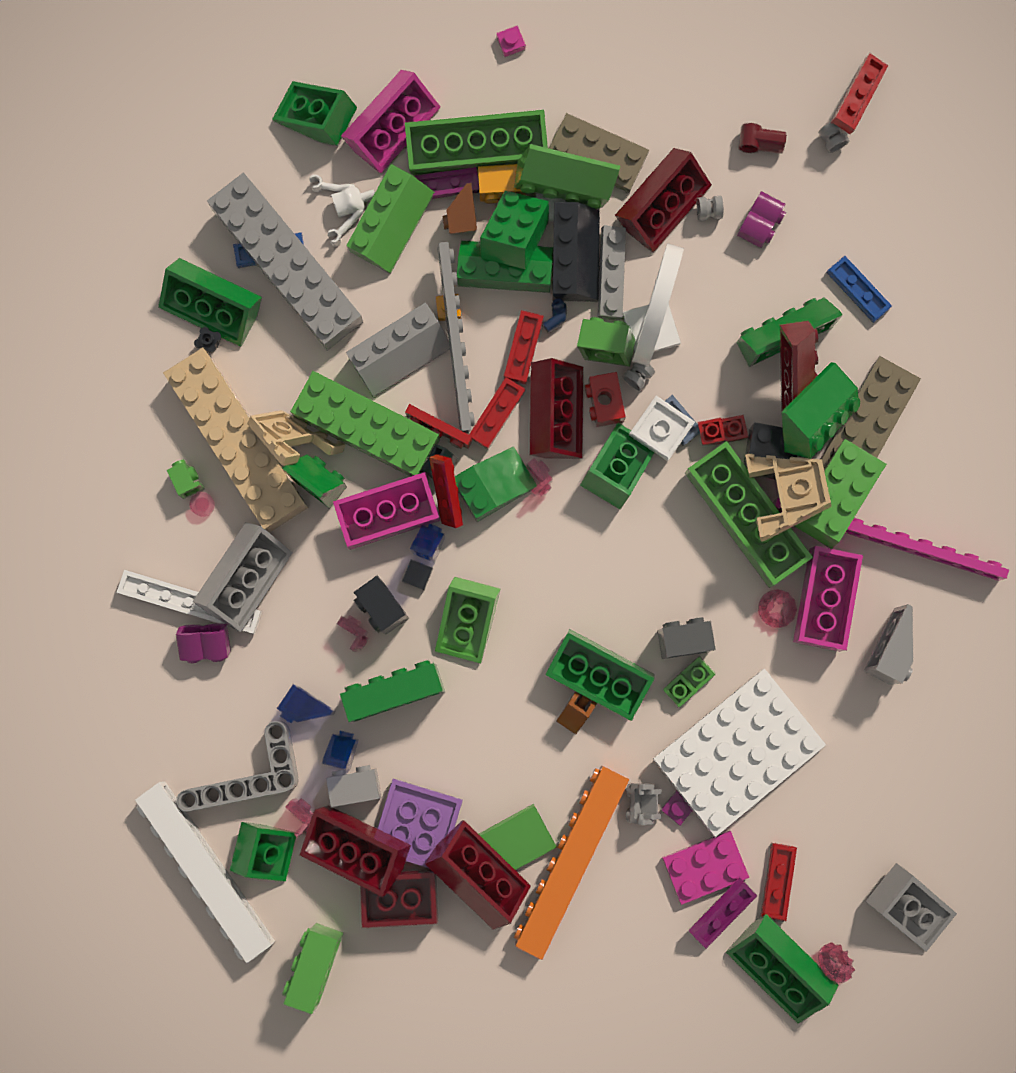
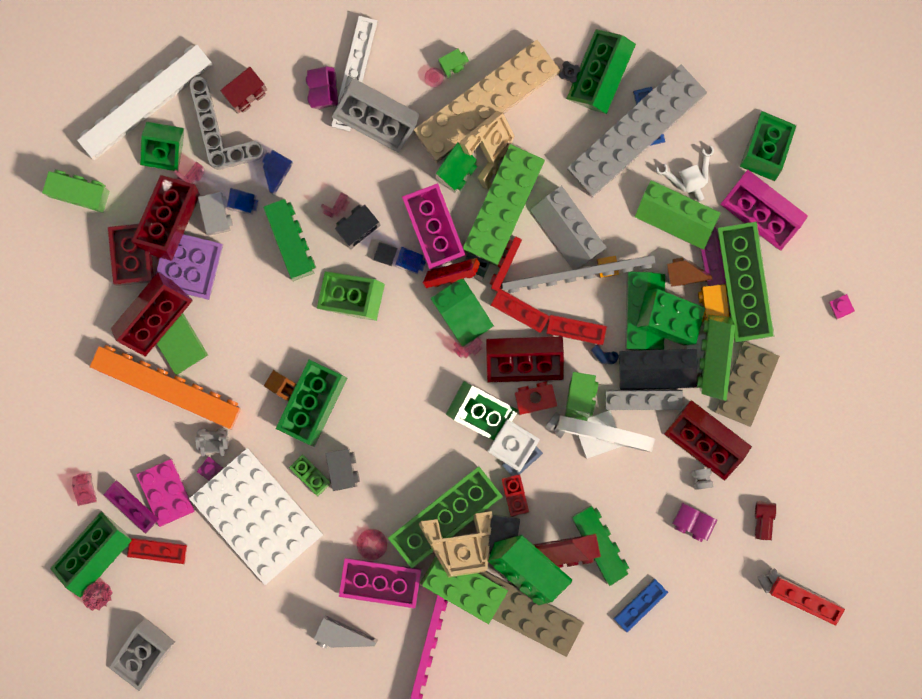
camera: 85 degrees right, 5 degrees up
(198, 741) = (244, 90): none -> dark red brick
(697, 974) = (83, 489): none -> clear pink bracket

